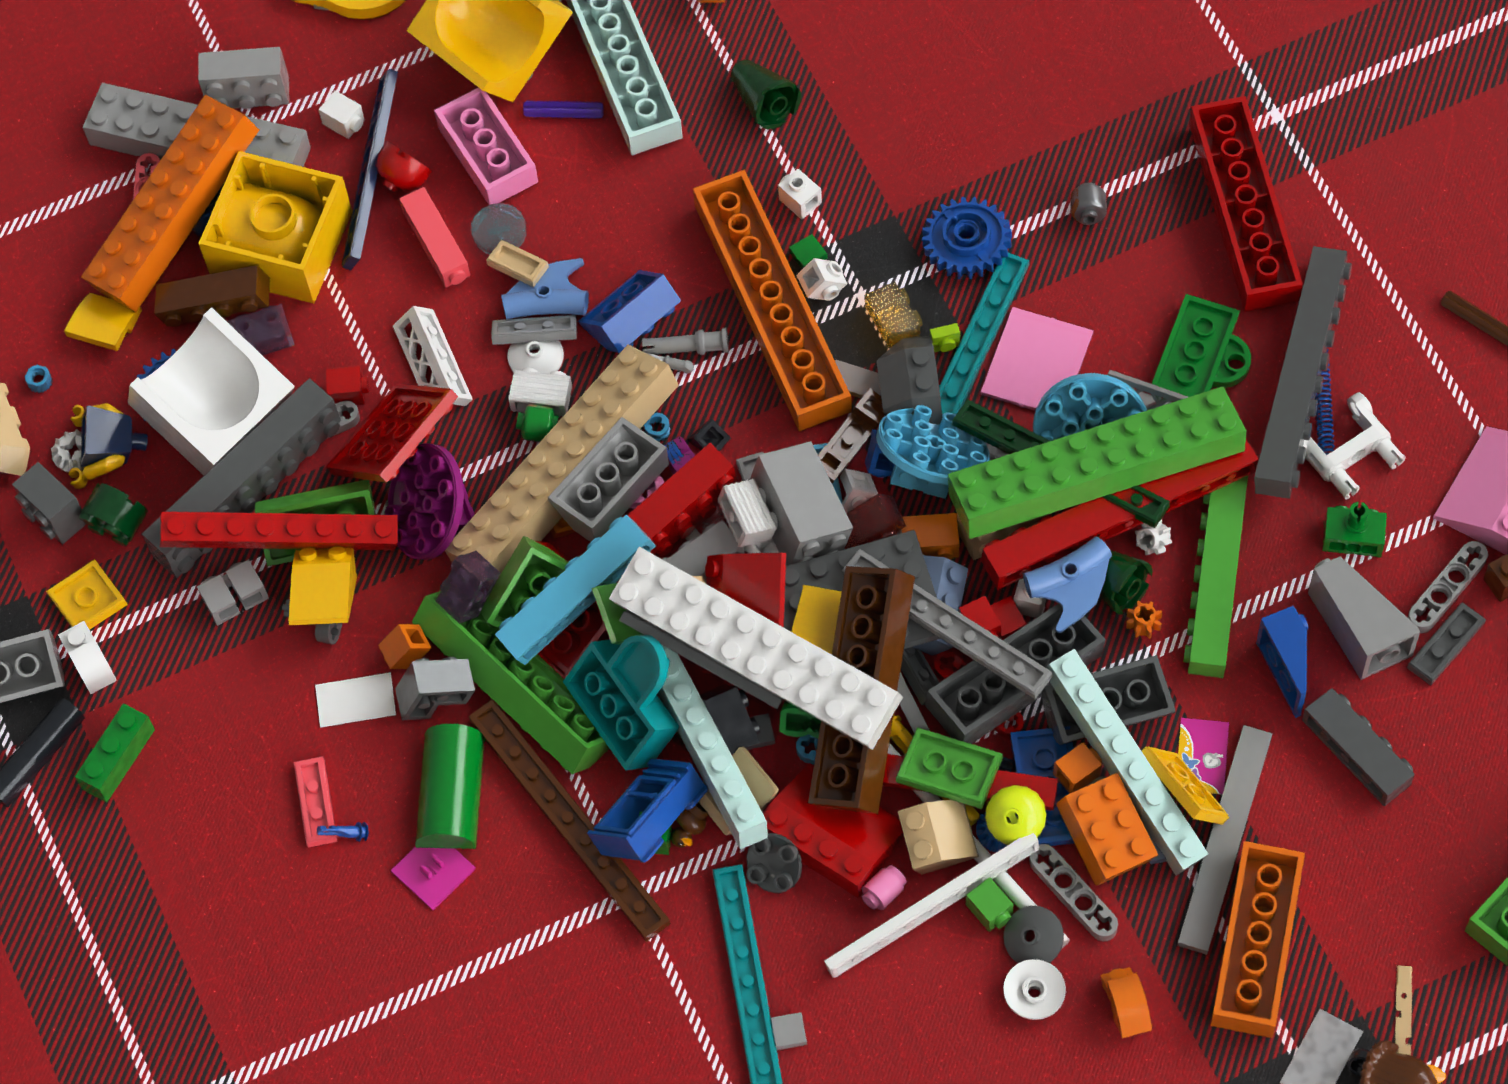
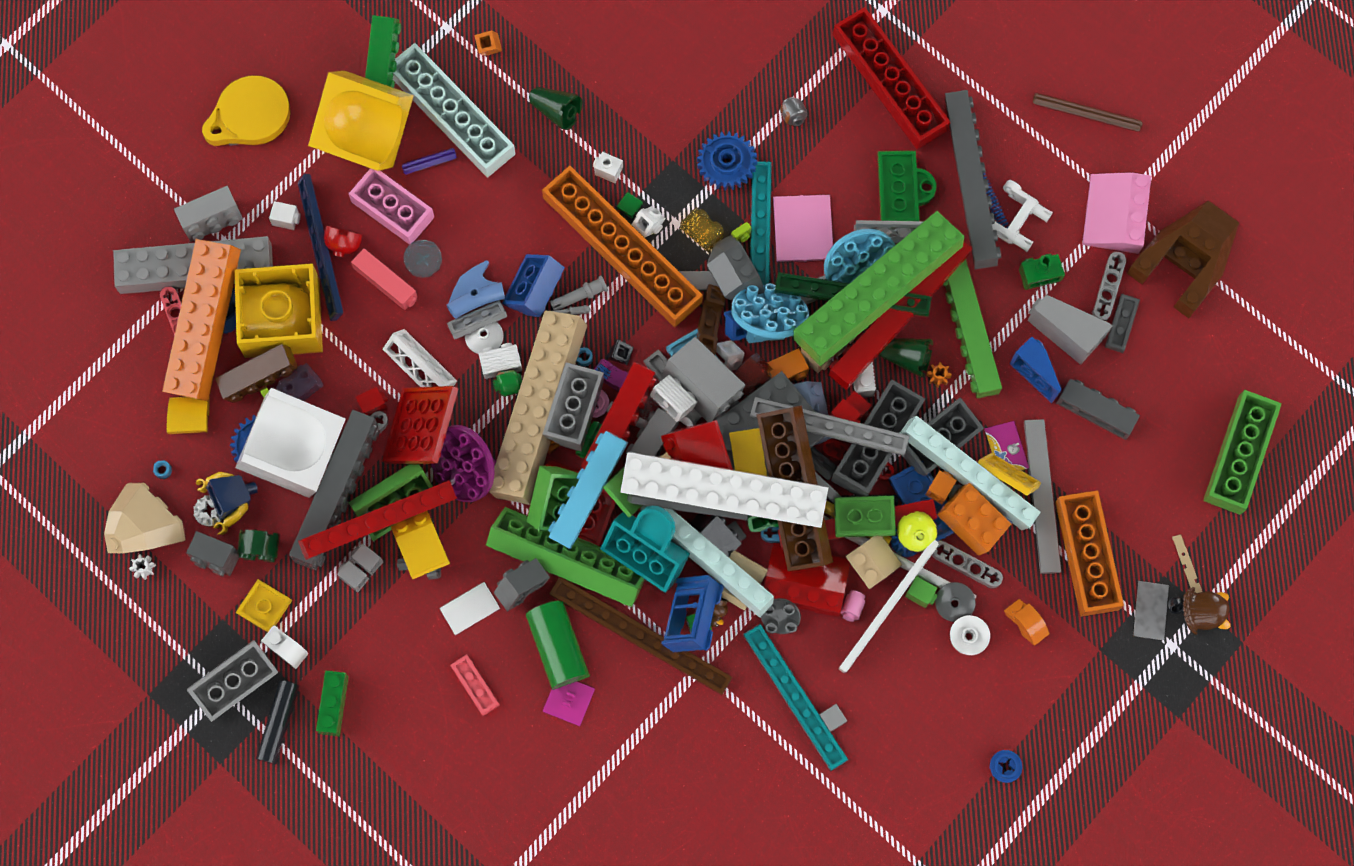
camera: 30 degrees left, 10 degrees up
(358, 831) = (511, 693): blue piece -> none
(404, 645) = (489, 563): orange brick -> none
(467, 586) = (516, 512): clear purple brick -> none
(517, 263) = (447, 278): tan tile -> none
(1075, 591) = (897, 374): medium blue pin -> none
(1153, 539) = (923, 322): white gear -> none

